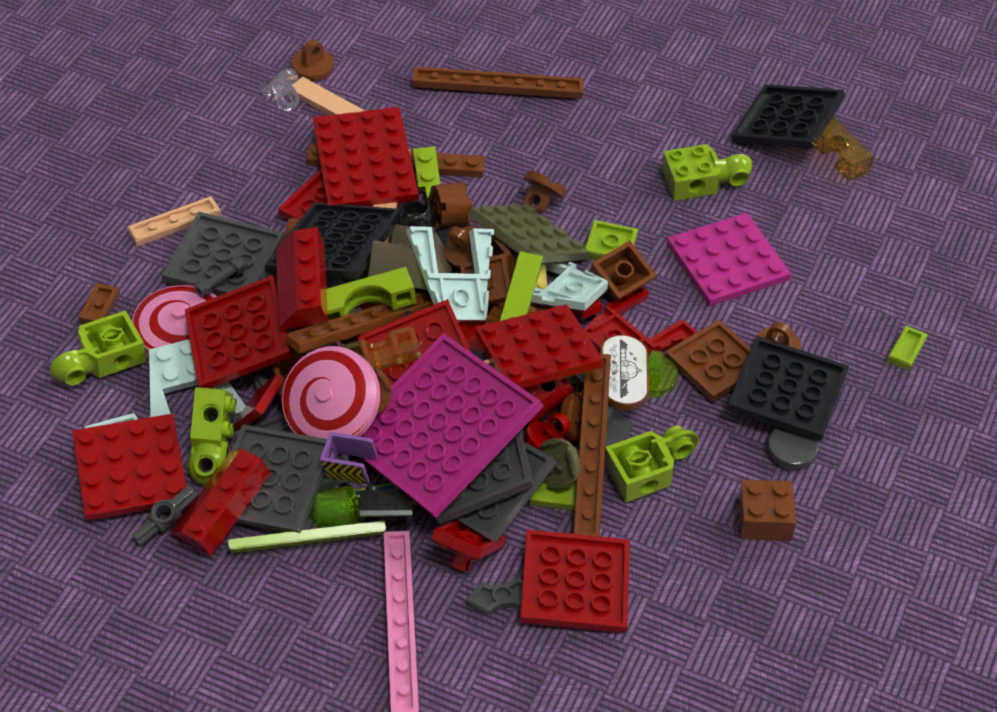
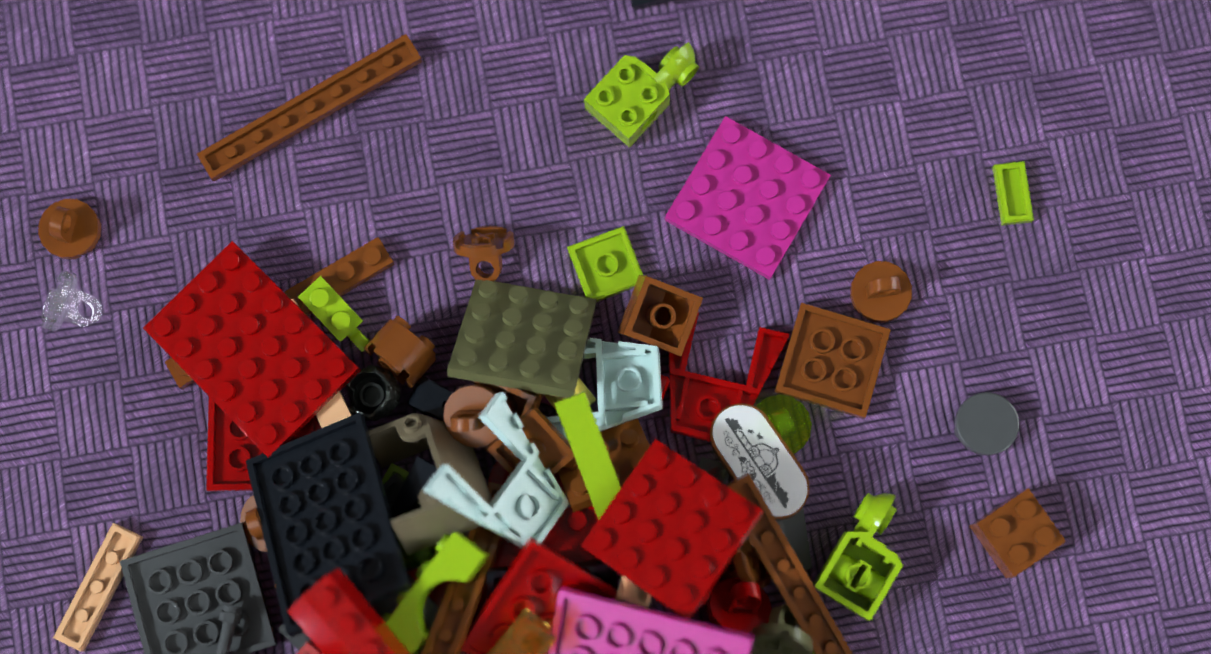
camera: 30 degrees left, 30 degrees up
(323, 99) = (133, 277): light nougat tile -> none
(788, 388) = (940, 356): black plate -> none

